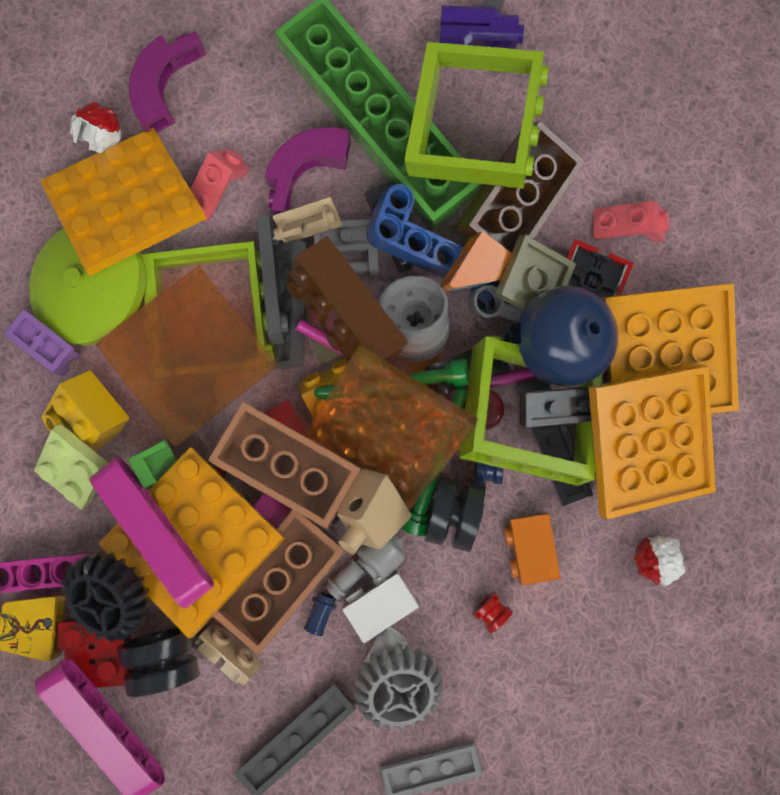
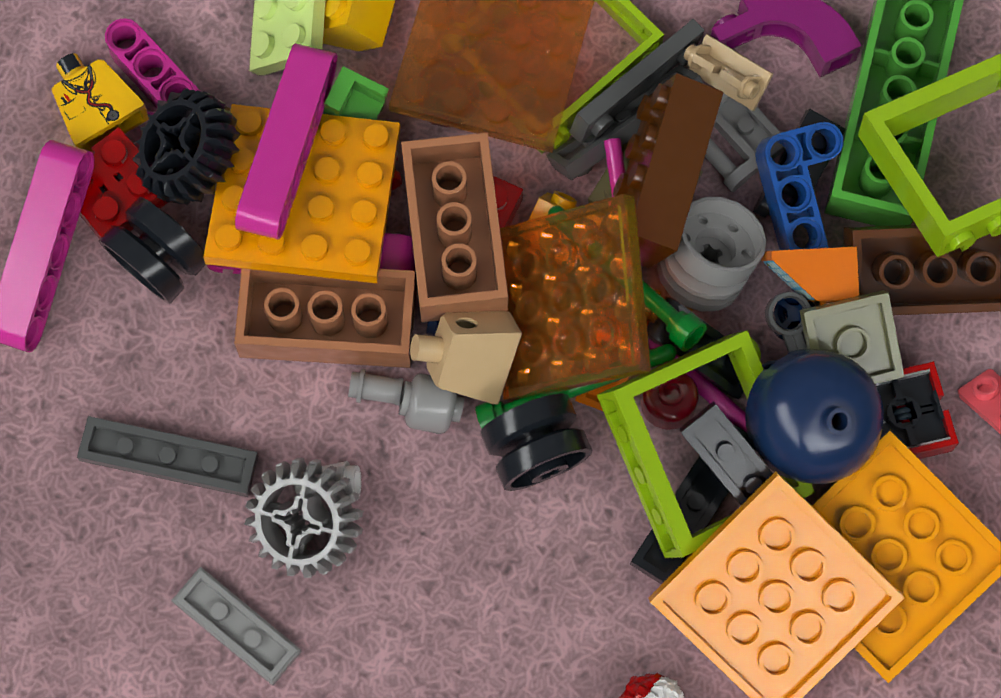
camera: 50 degrees right, 10 degrees down
(218, 643) = (210, 303): tan hinge -> none
(320, 613) = (320, 387): dark blue pin -> none
(380, 606) = (375, 441): white brick -> none
(488, 473) = (607, 455): dark blue wheel -> none
(492, 612) = (456, 567): red wheel -> none
(532, 549) = (558, 560): orange brick -> none

